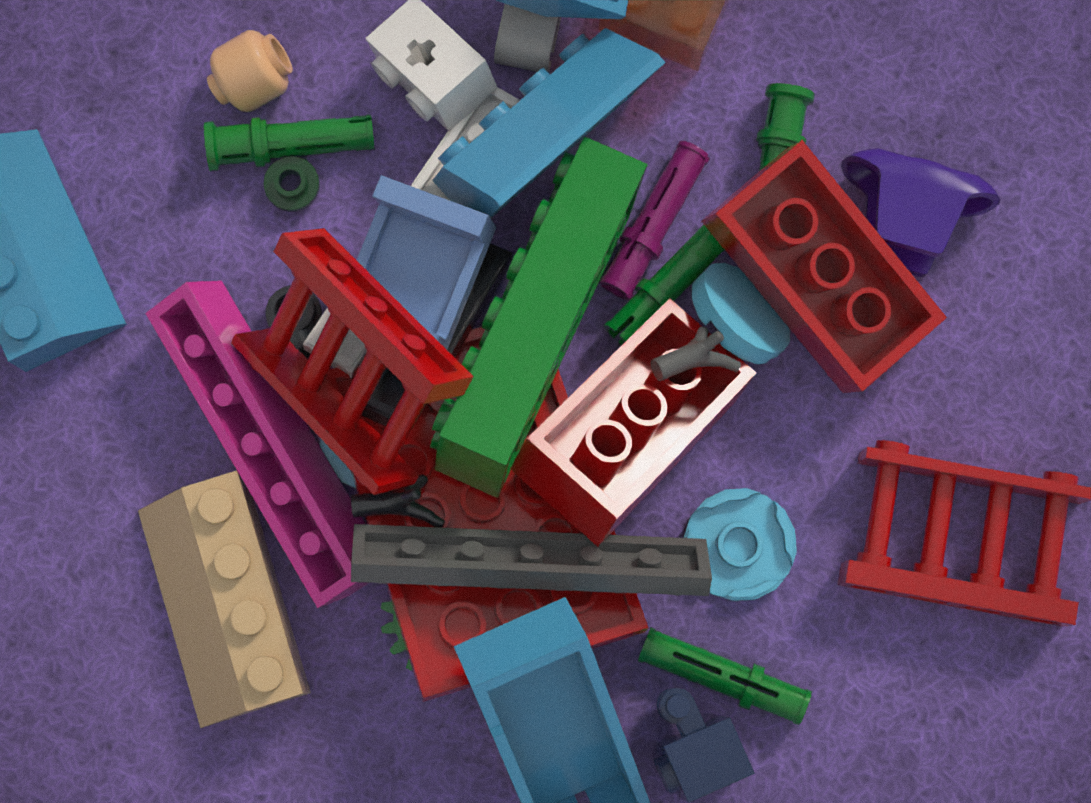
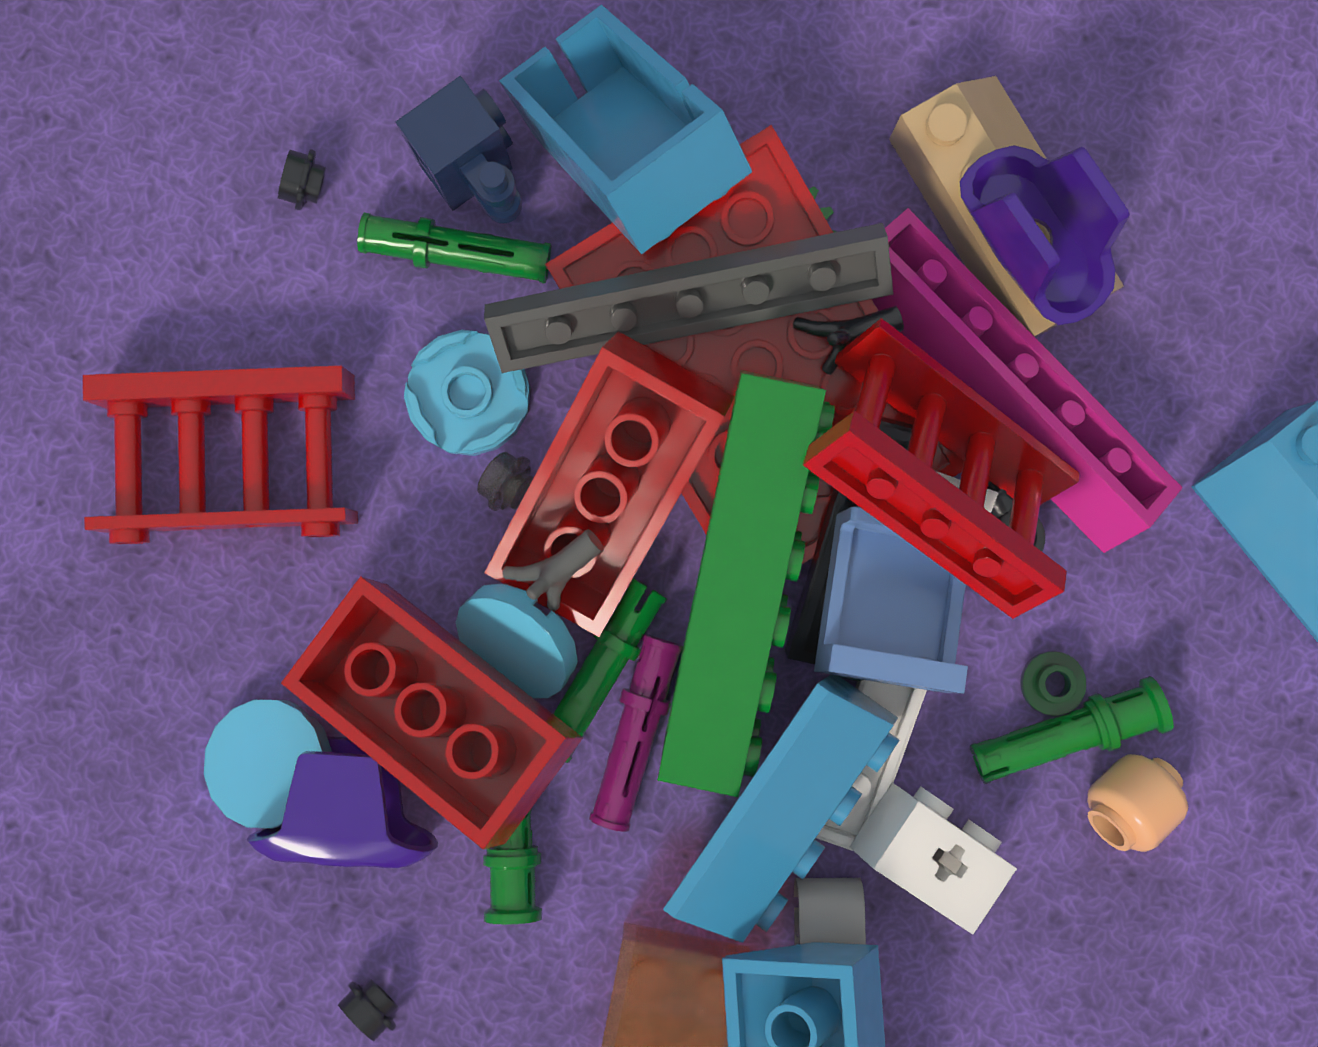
camera: 165 degrees right, 5 degrees up
(189, 513) = (1074, 203): none -> dark purple piece
(721, 455) = (505, 481): none -> clear smoke plate
(851, 771) = (301, 179): none -> black plate
(924, 46) = (369, 1008): none -> black plate
(980, 266) = (255, 757): none -> medium azure tile

